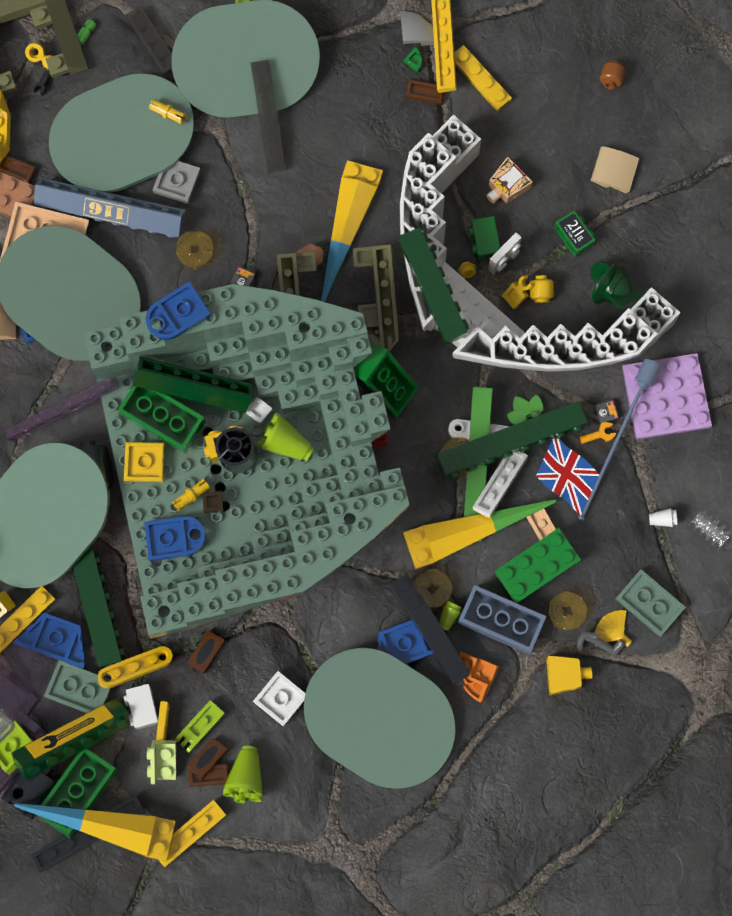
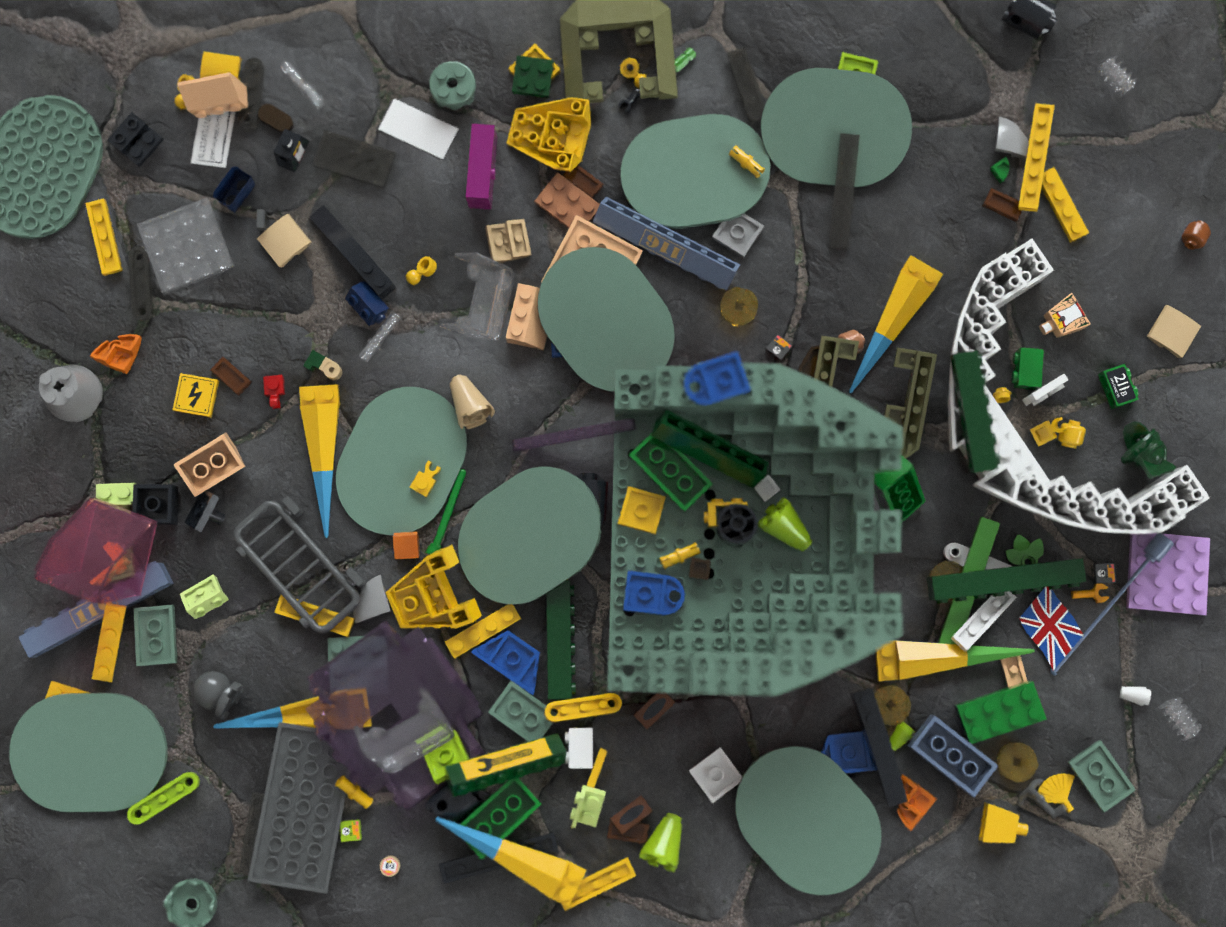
camera: 15 degrees right, 5 degrees up
(200, 725) = (632, 780): lime hinge -> none

